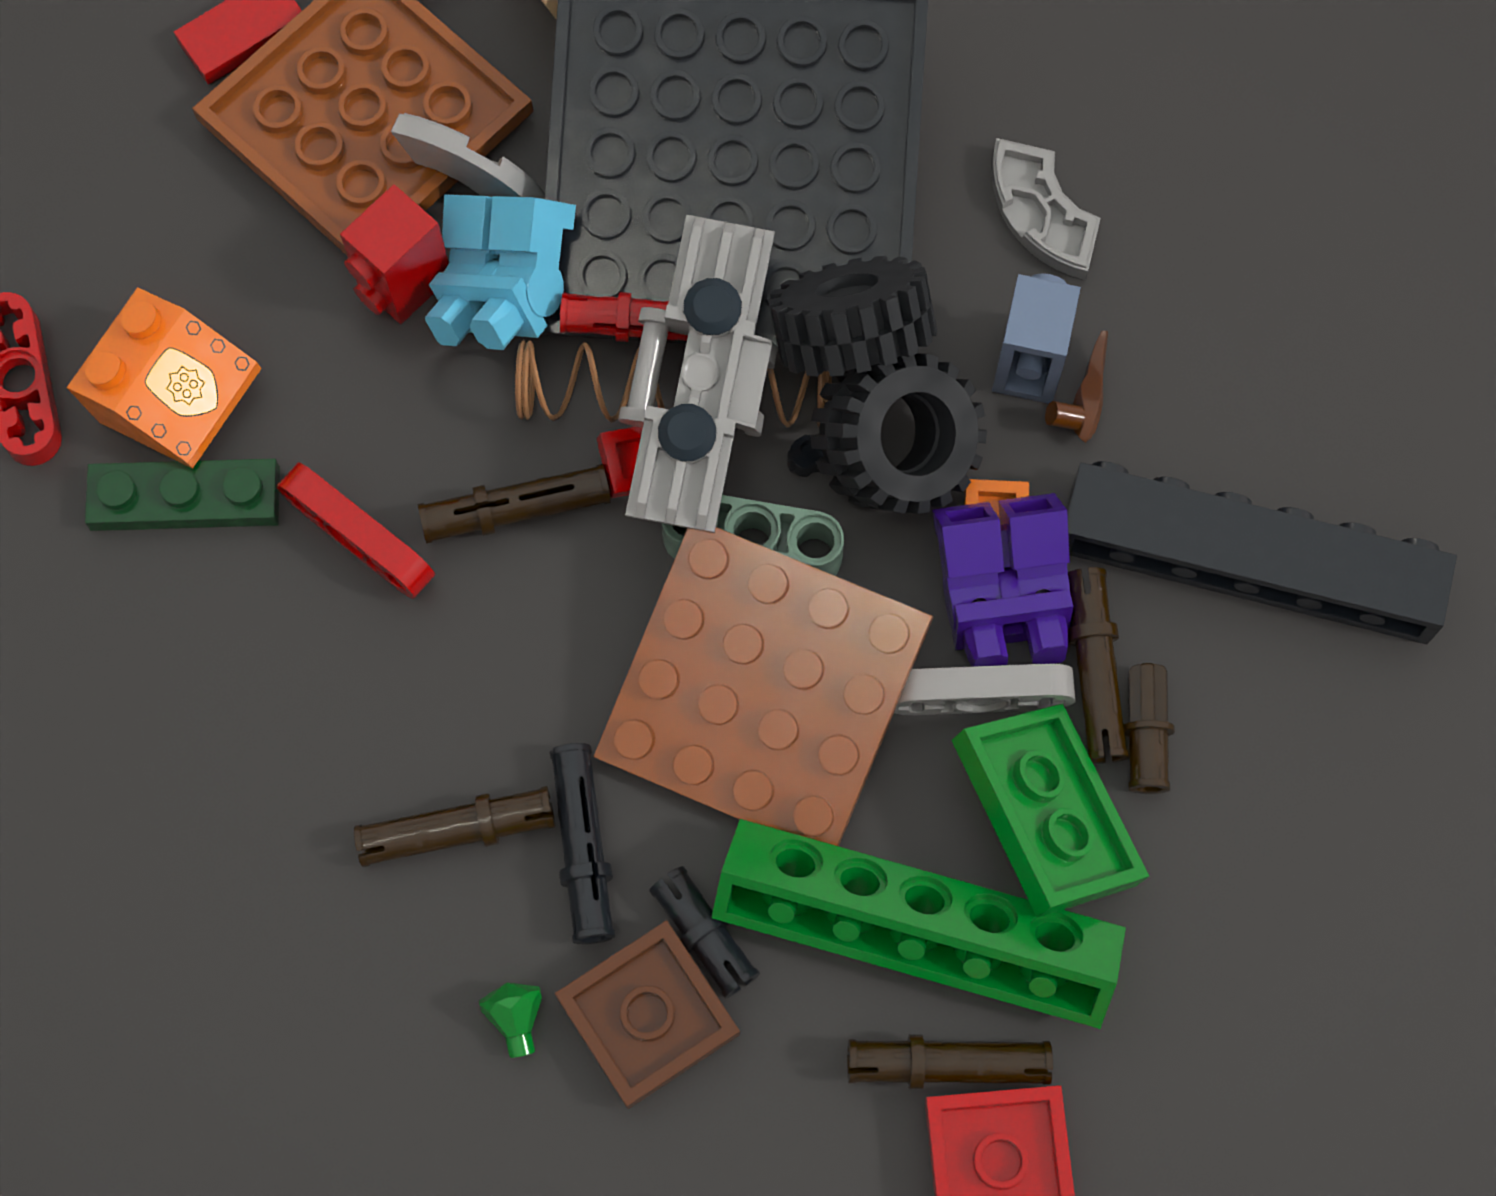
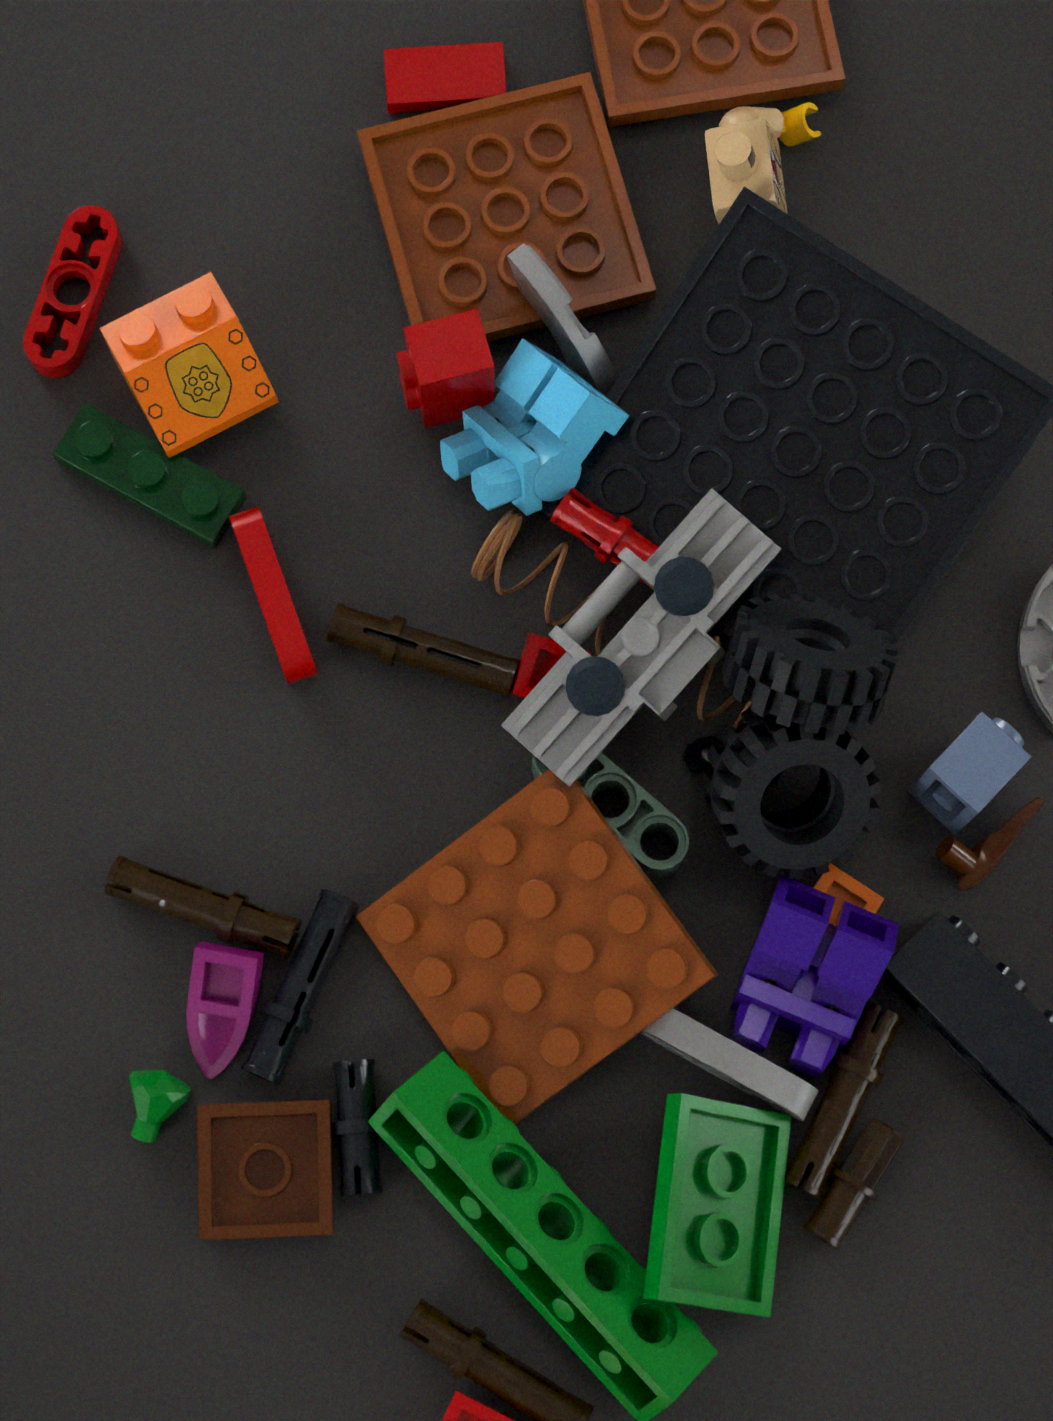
camera: 30 degrees right, 5 degrees up
(521, 898) = (221, 1002): none -> magenta plate

